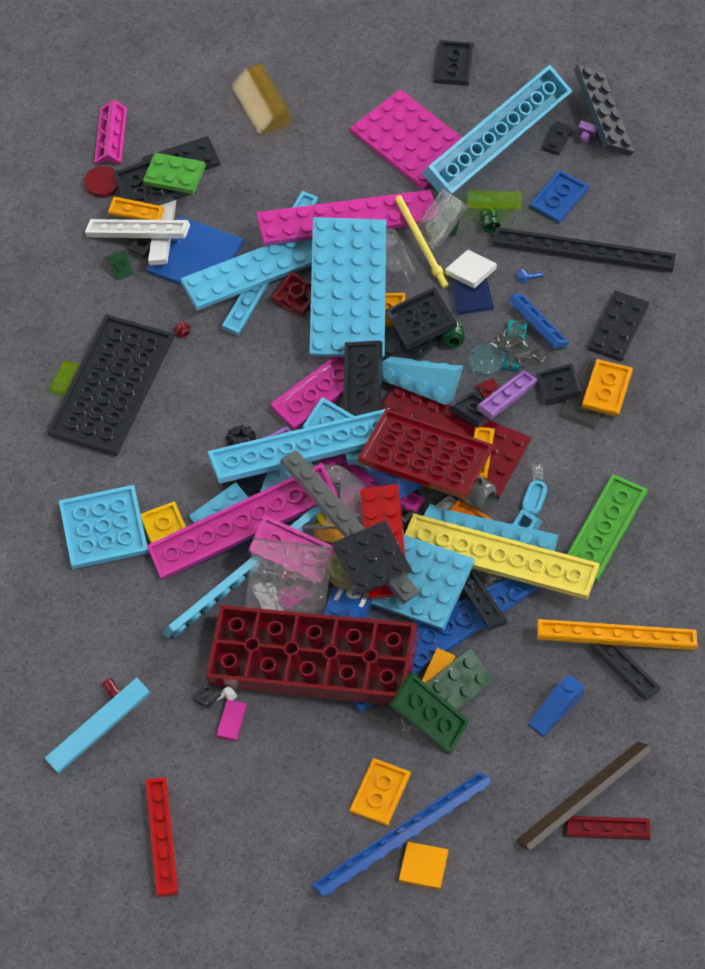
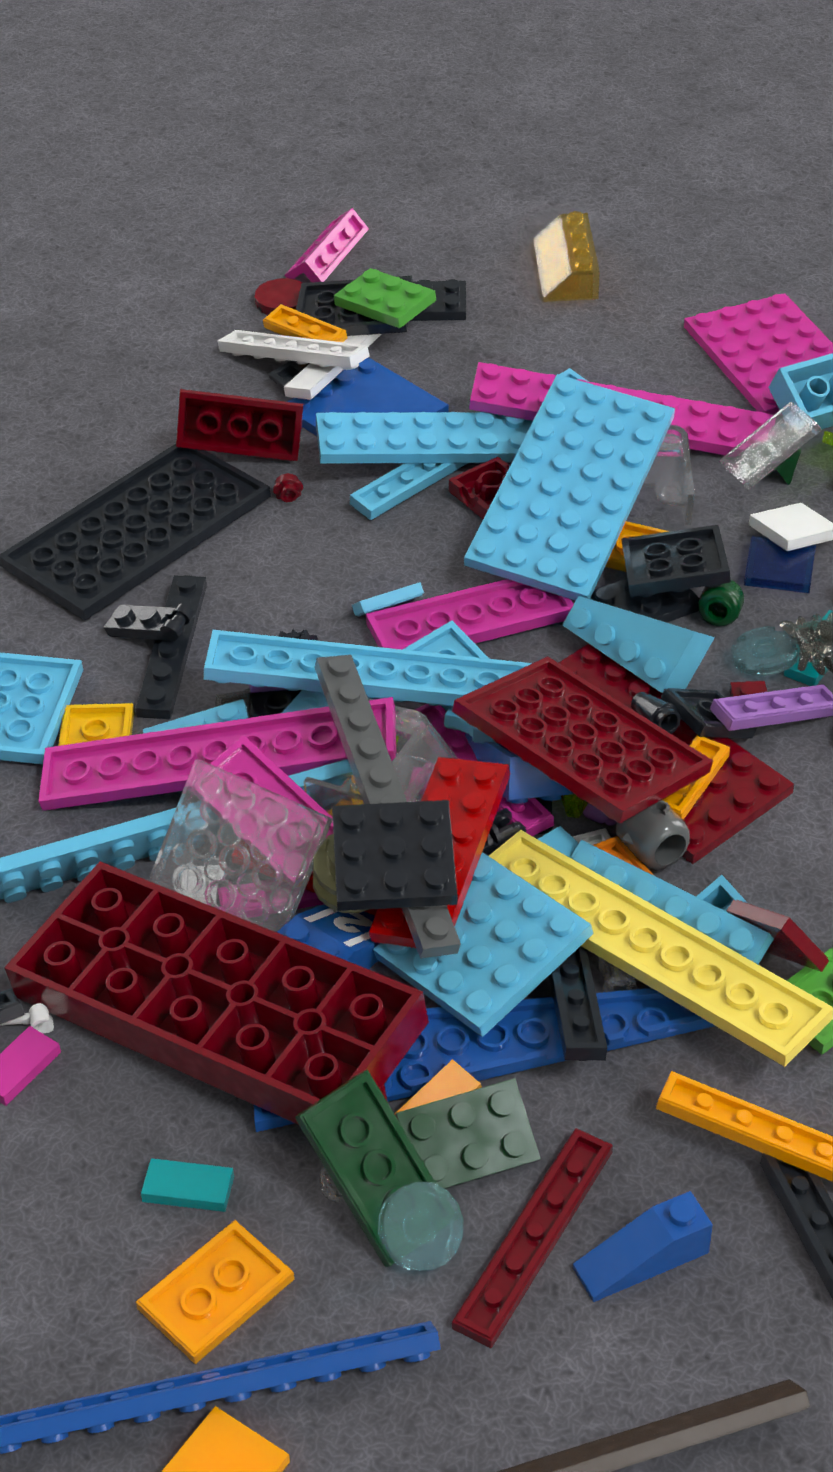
camera: 20 degrees right, 15 degrees down
(64, 377) = (70, 499): clear neon green tile -> none
(120, 264) = (244, 383): dark green bracket -> none
(138, 300) = (239, 425): none -> dark red slope
(157, 448) = (149, 622): none -> black plate
(174, 457) = (170, 657): none -> black plate
(276, 389) = (388, 599): none -> medium azure tile
(342, 749) = (187, 1185): none -> teal tile
(362, 377) = (535, 607): black plate -> none
(437, 271) = (736, 514): light yellow bar -> none
(450, 420) = (657, 711): none -> black cone
(458, 731) = (421, 1226): none -> clear light blue tile
(506, 716) = (532, 1238): none -> dark red tile
(534, 497) = (762, 877): medium azure tile -> none
(537, 471) = (782, 838): clear bush -> none
(563, 531) = (788, 940): none -> dark red tile

